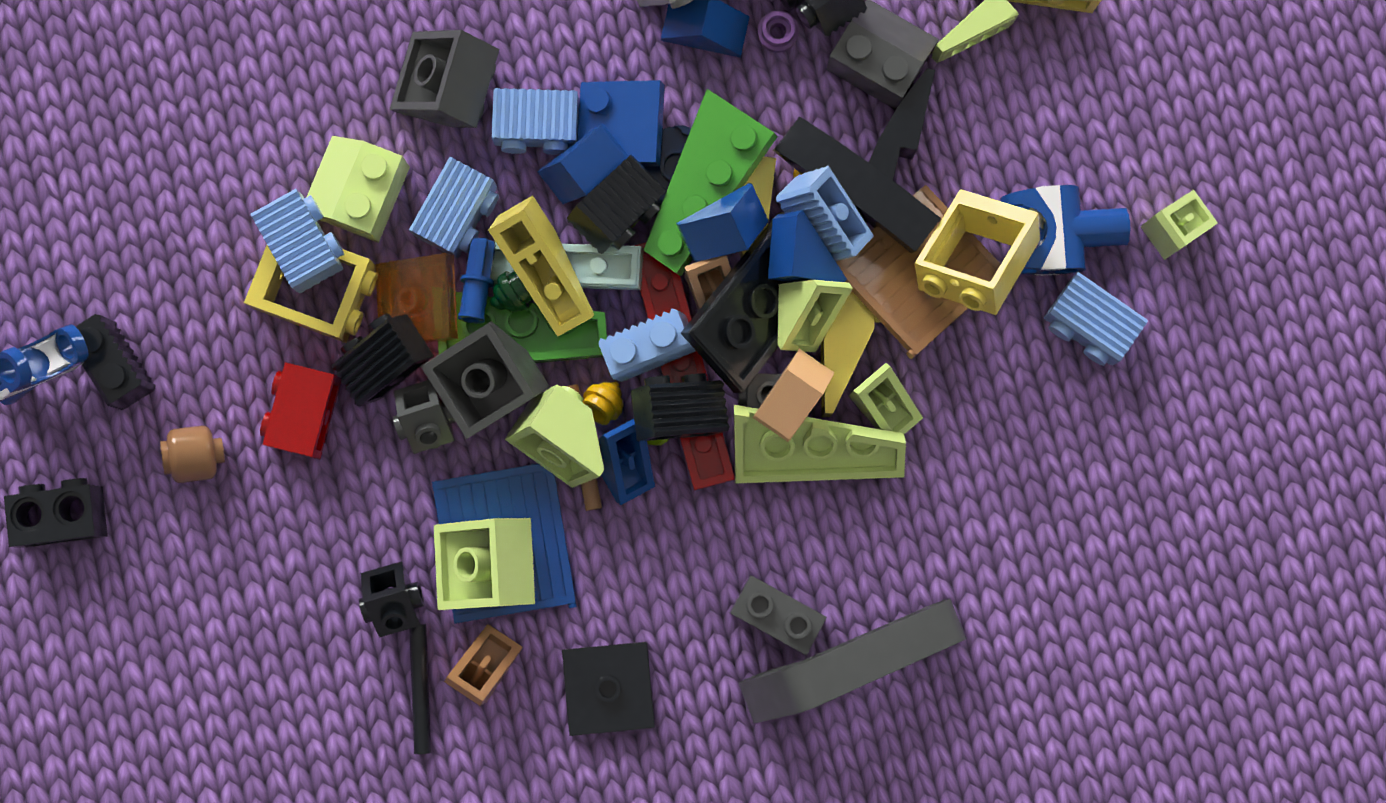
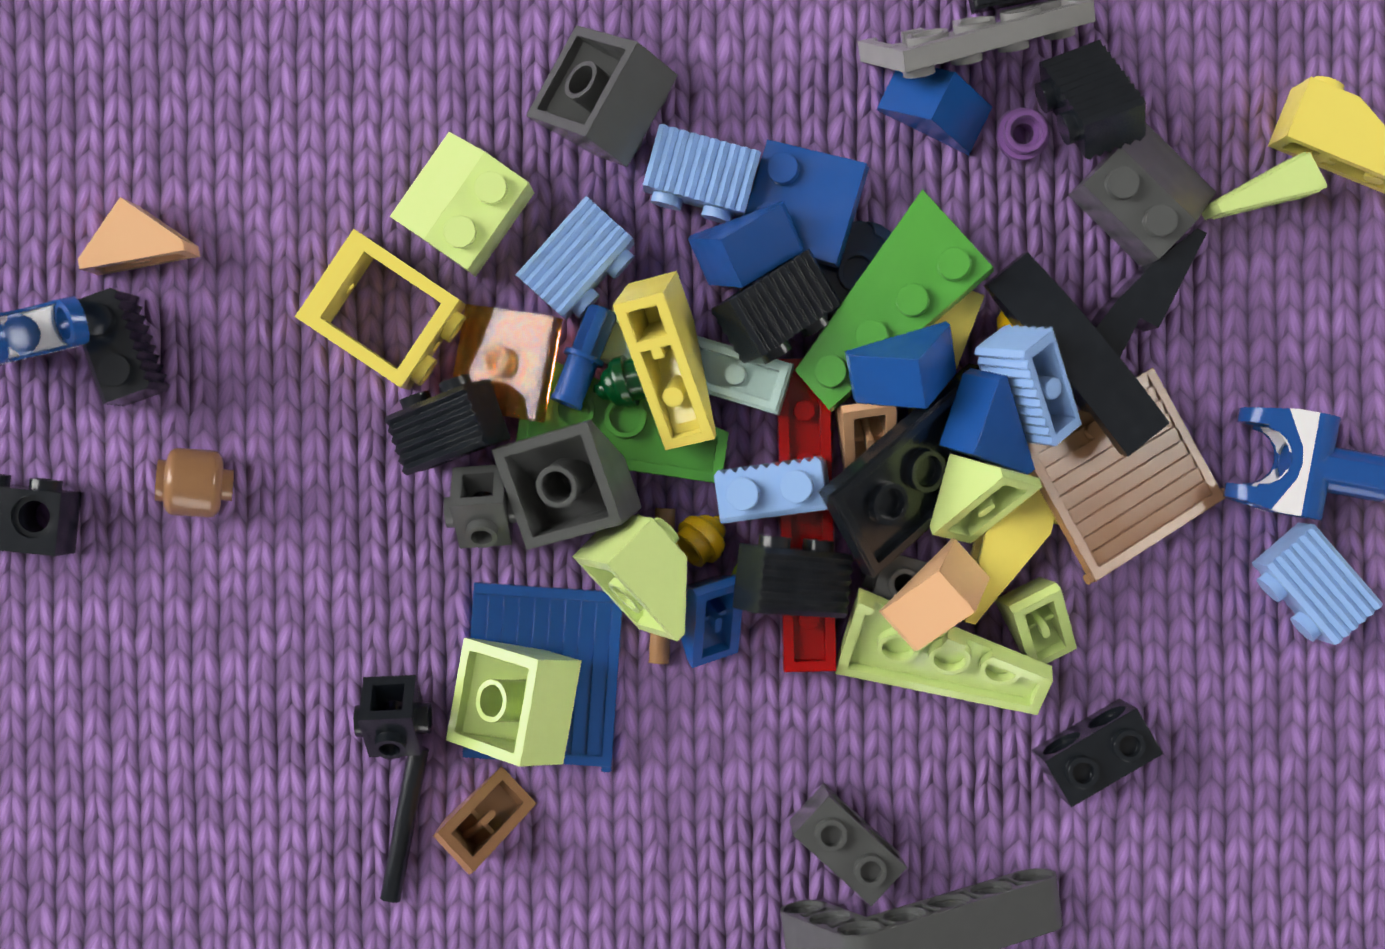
camera: 15 degrees right, 5 degrees up
(104, 277) = (133, 240): none -> light nougat slope
(298, 241) = (377, 258): light blue brick -> none
(300, 410) = (335, 462): red brick -> none
(608, 688) = (625, 877): black plate -> none
(957, 493) = (1097, 752): none -> black brick
(975, 215) = (1213, 428): light yellow window -> none

